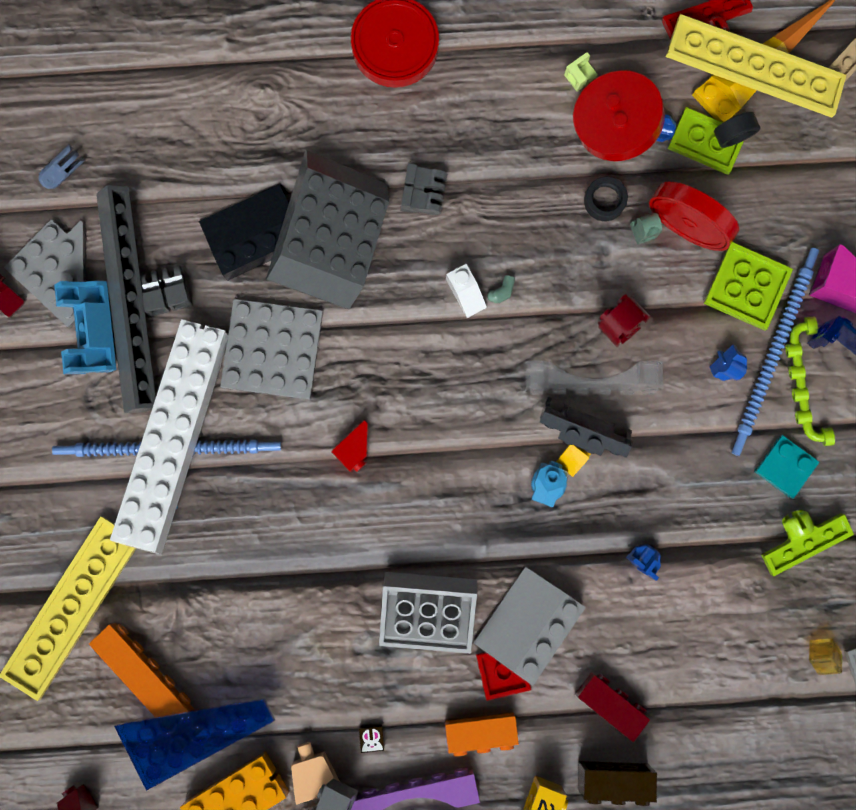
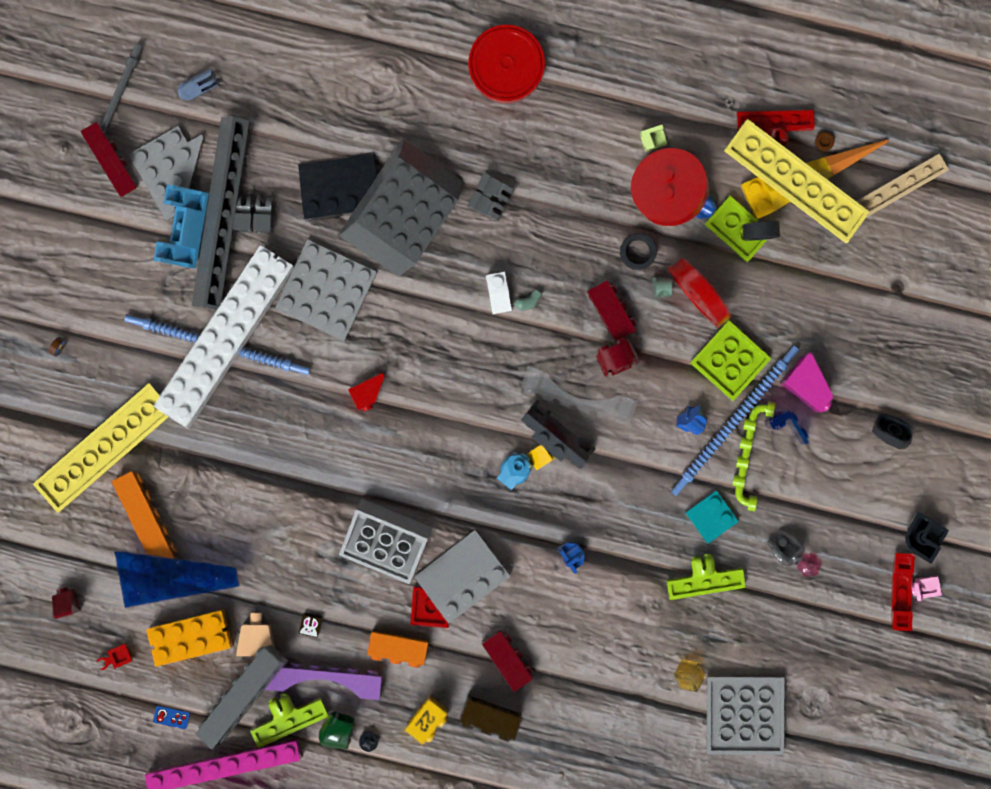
camera: 15 degrees right, 5 degrees up
(598, 272) = (611, 310): none -> dark red brick
(766, 21) = (824, 141): none -> reddish brown tile

